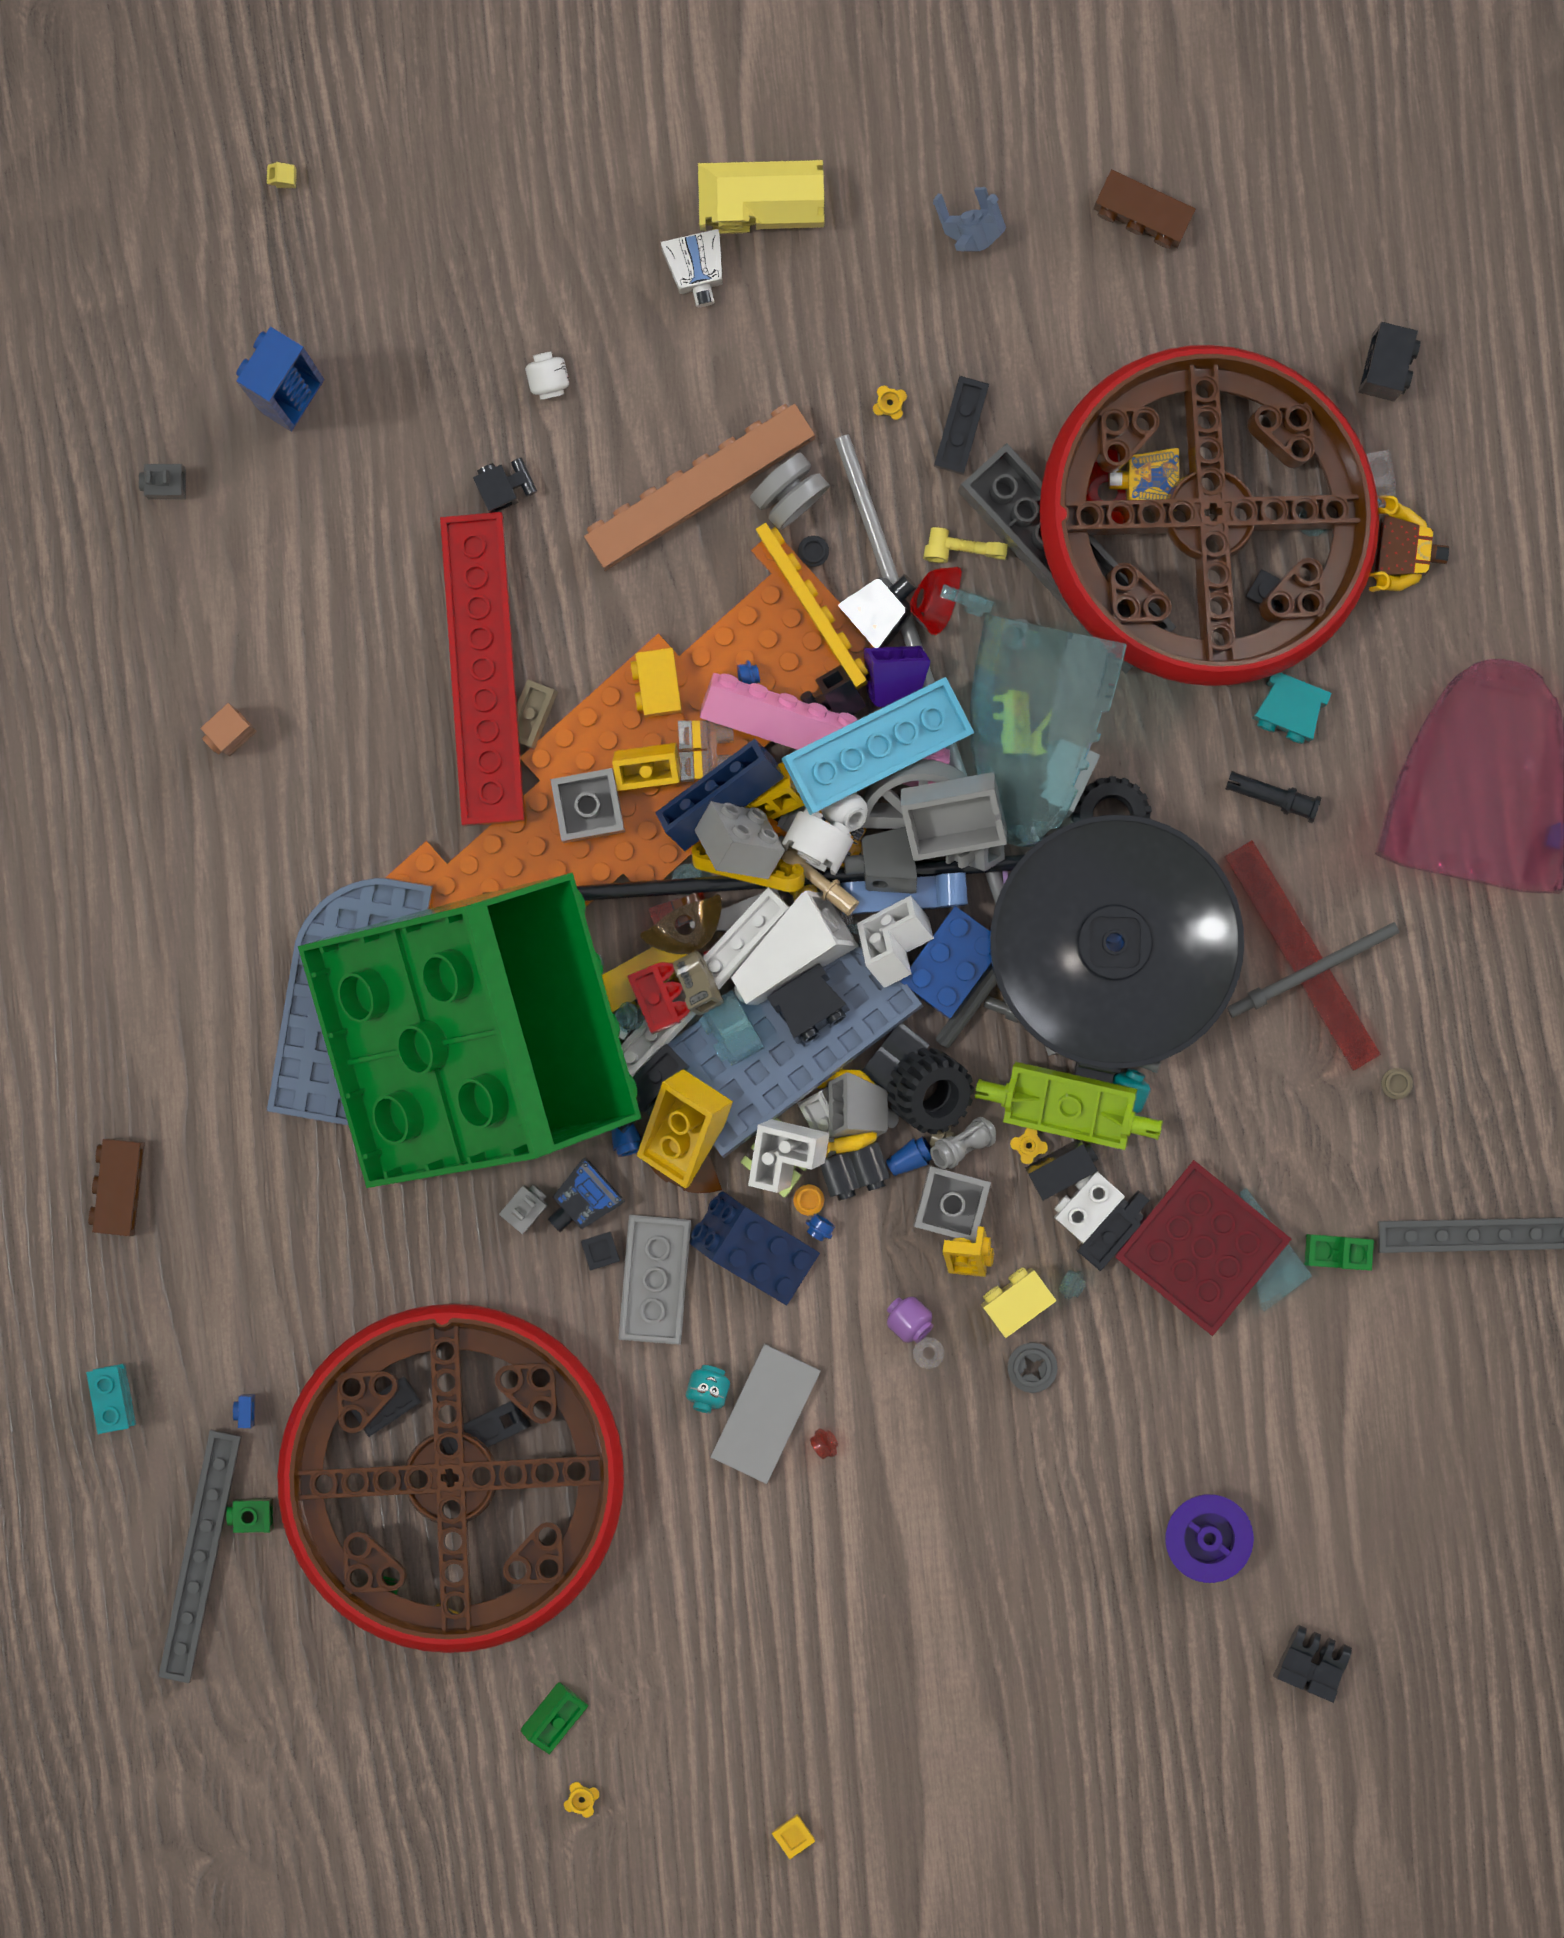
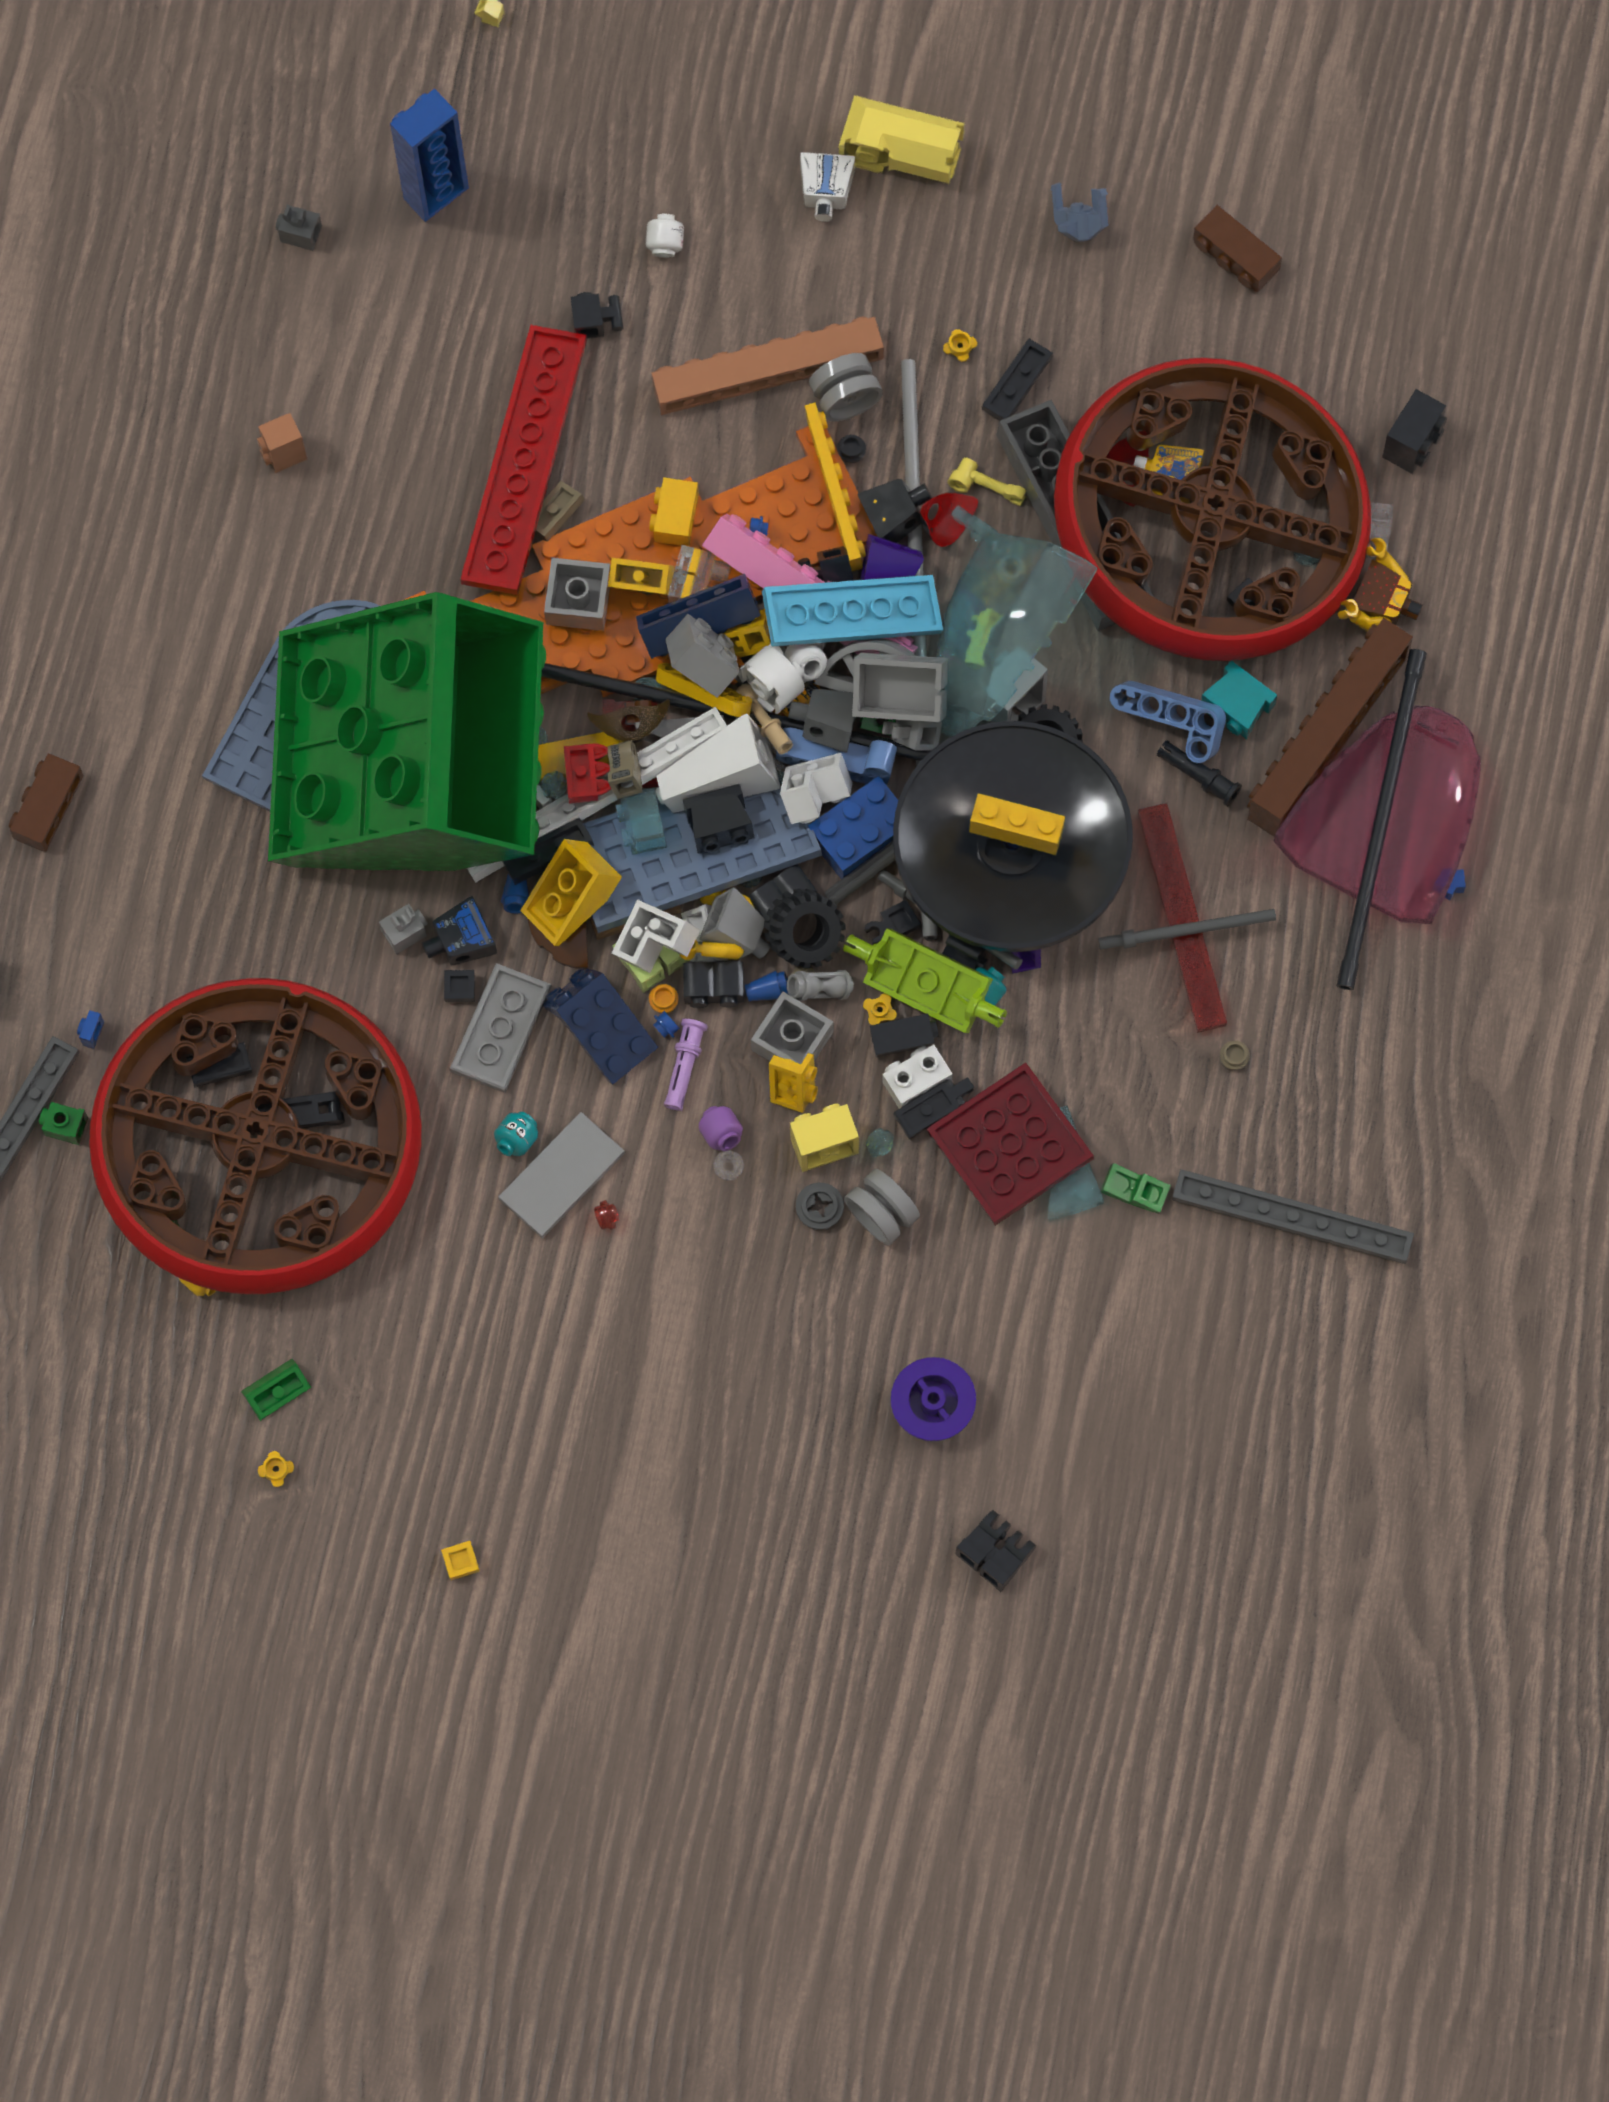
camera: 15 degrees right, 15 degrees down
(850, 1247) = (687, 1051): none -> lavender pin
(1017, 1047) = (898, 917): none -> black plate
(1097, 1357) = (882, 1207): none -> light grey wheel
(1121, 935) = (1017, 824): none -> yellow brick
(1226, 748) = (1168, 715): none -> medium blue beam
(1395, 711) = (1331, 724): none -> reddish brown brick
(1465, 633) = (1350, 962): none -> black piece

